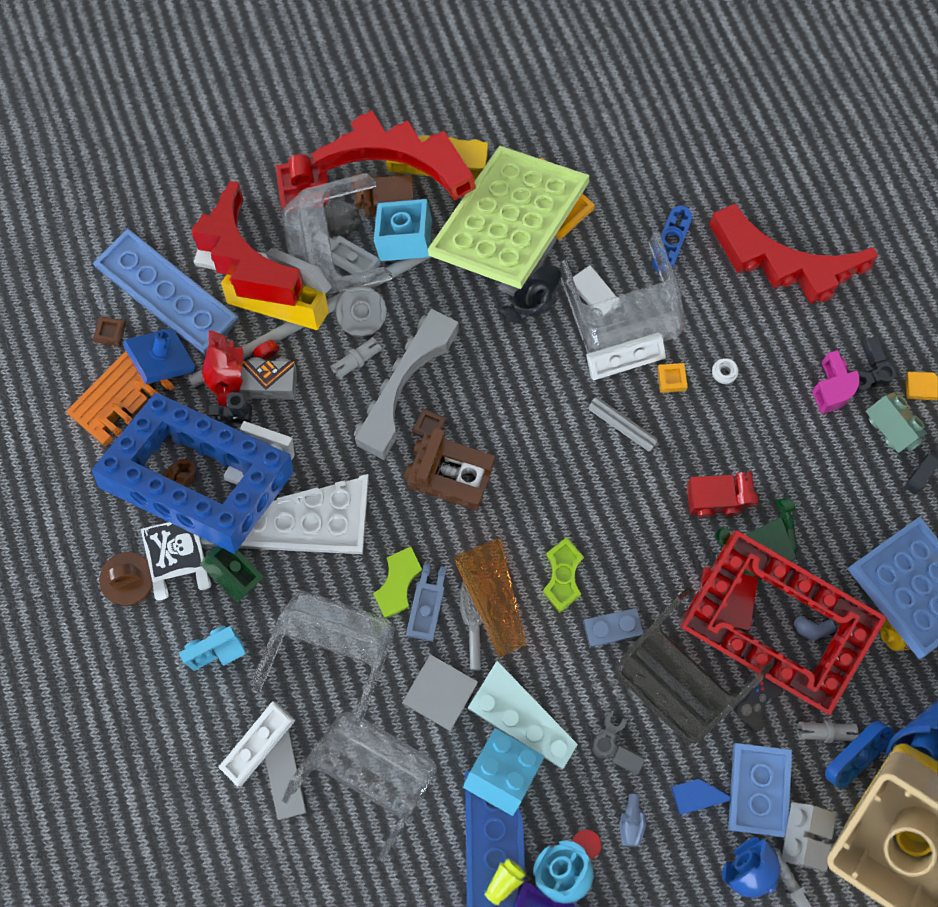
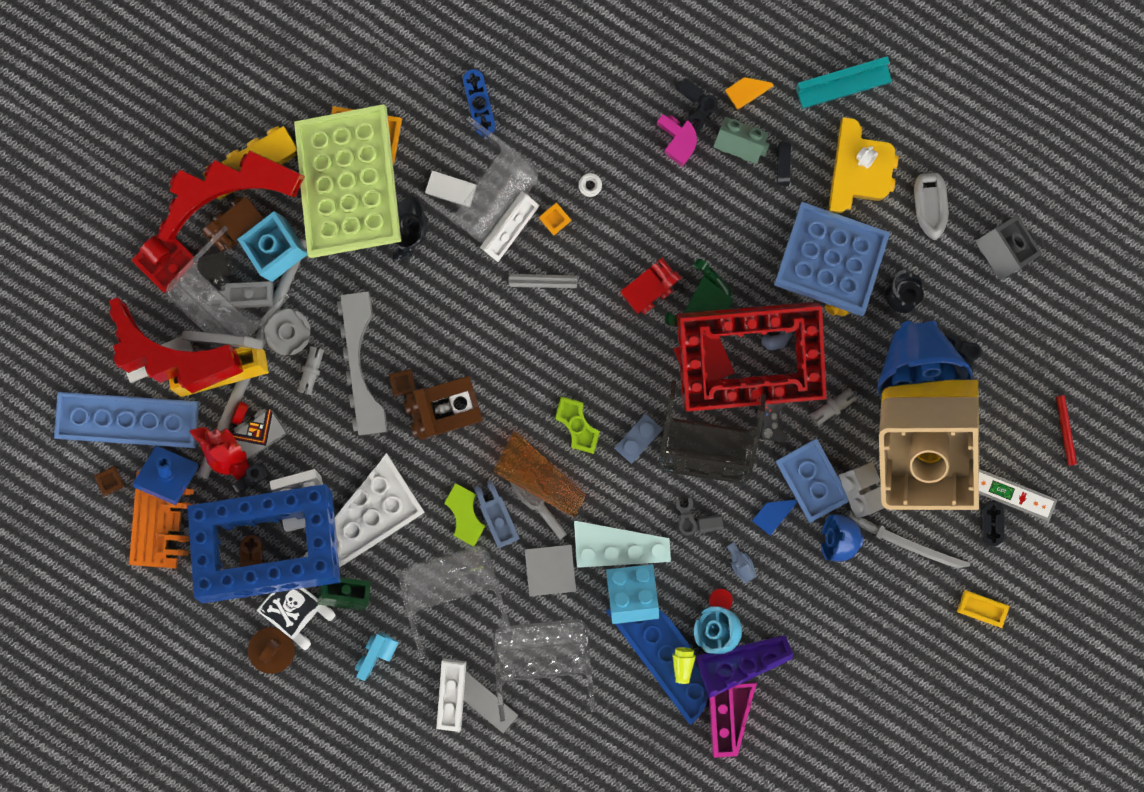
camera: 40 degrees left, 15 degrees up
(783, 266) = (608, 57): red arch -> none
(870, 742) = (866, 394): blue beam -> none

